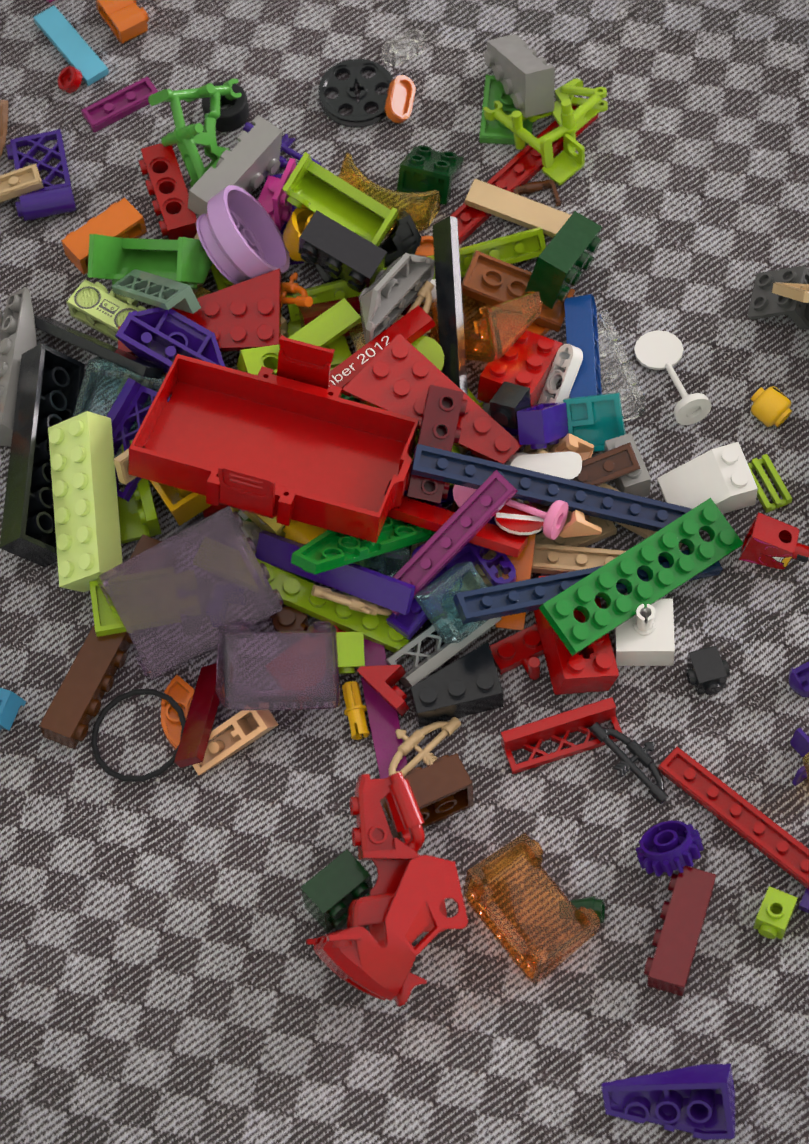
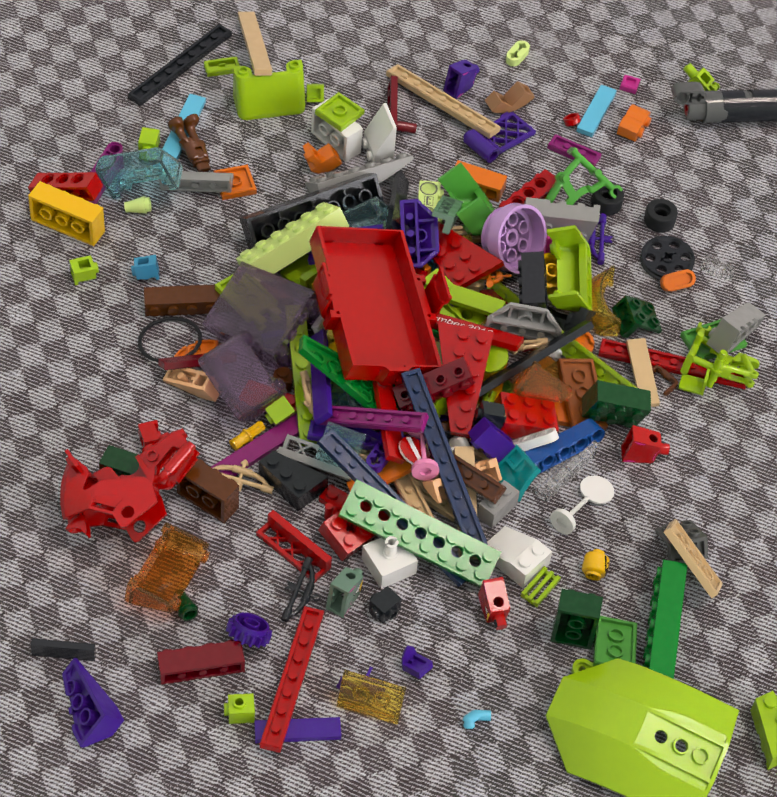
camera: 50 degrees right, 10 degrees down
(289, 51) = (667, 219): none -> black tyre
(291, 833) = (149, 433): none -> red brick
(383, 681) = (269, 438): red slope -> none
(558, 464) = (463, 453): white sticker -> none
(575, 1095) = (63, 649): none -> black tile
(633, 255) = (642, 446): none -> red torso
(666, 705) = (350, 584): none -> sand green torso

